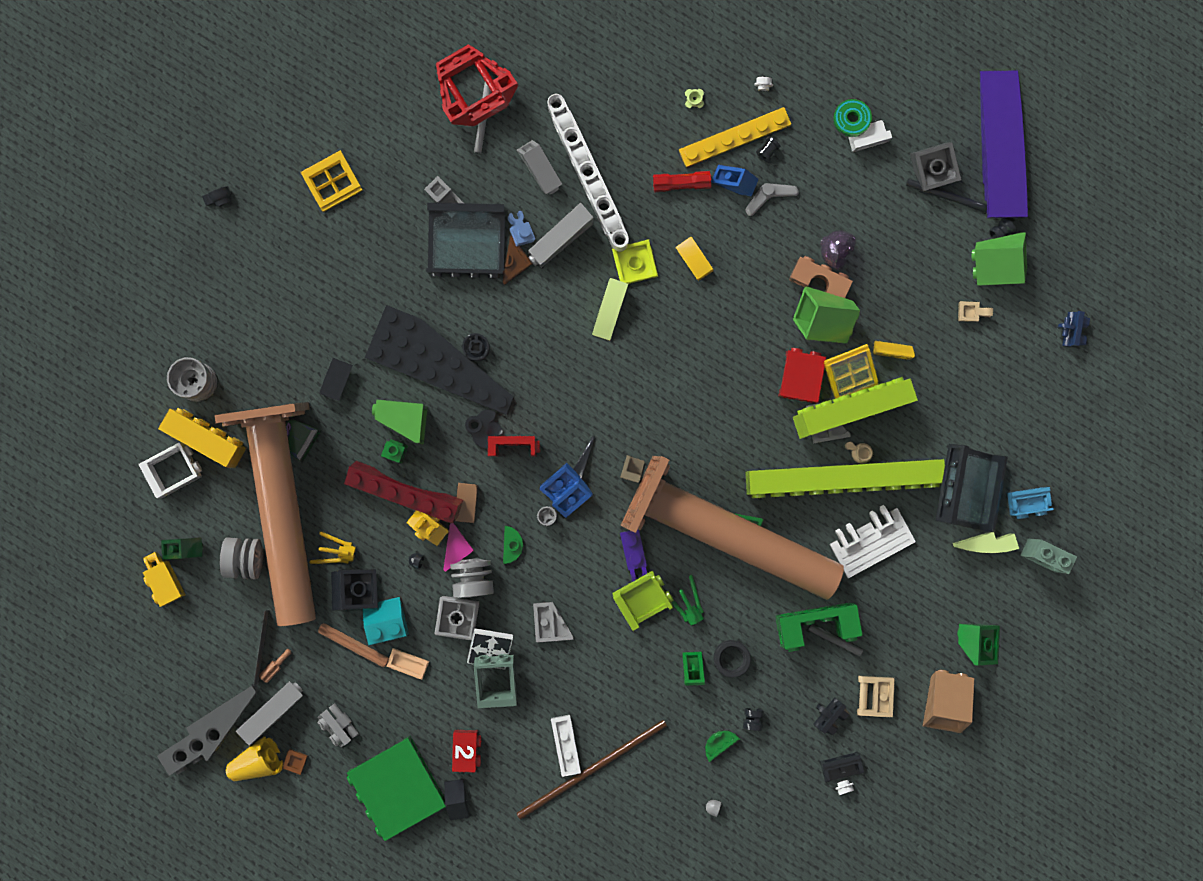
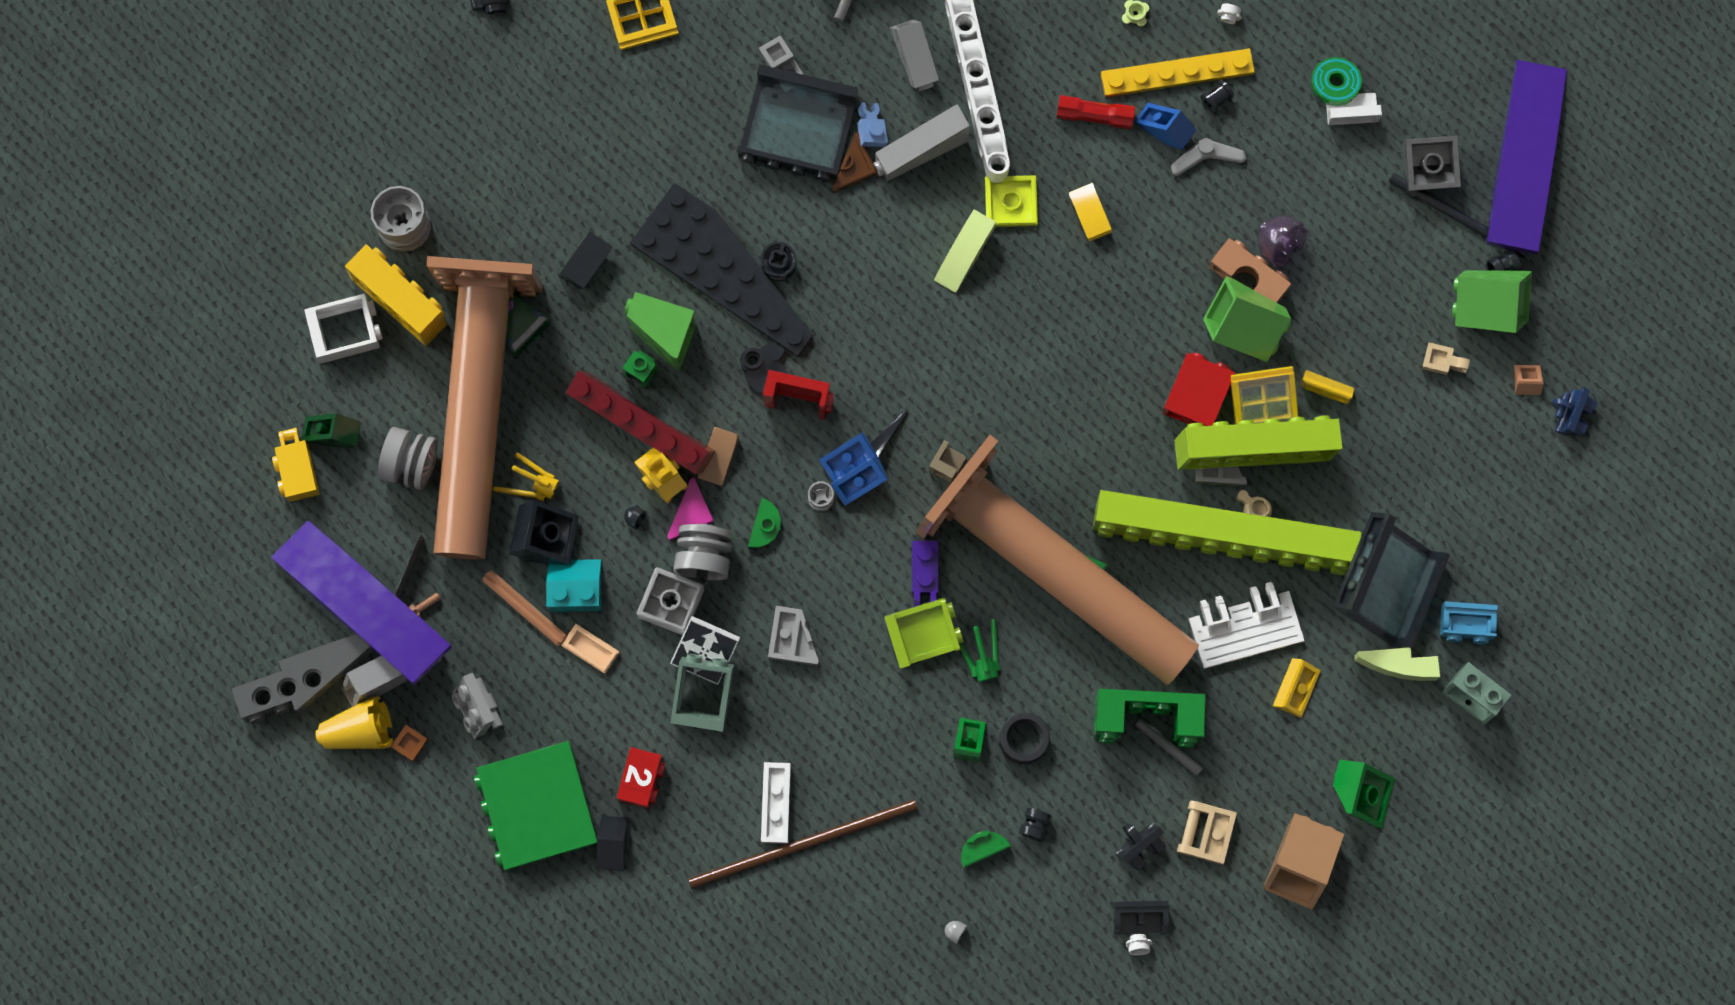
camera: 15 degrees right, 10 degrees down
(234, 673) = (361, 602): none -> dark purple slope
(916, 576) = (1297, 687): none -> yellow slope
(1036, 311) = (1528, 380): none -> nougat slope

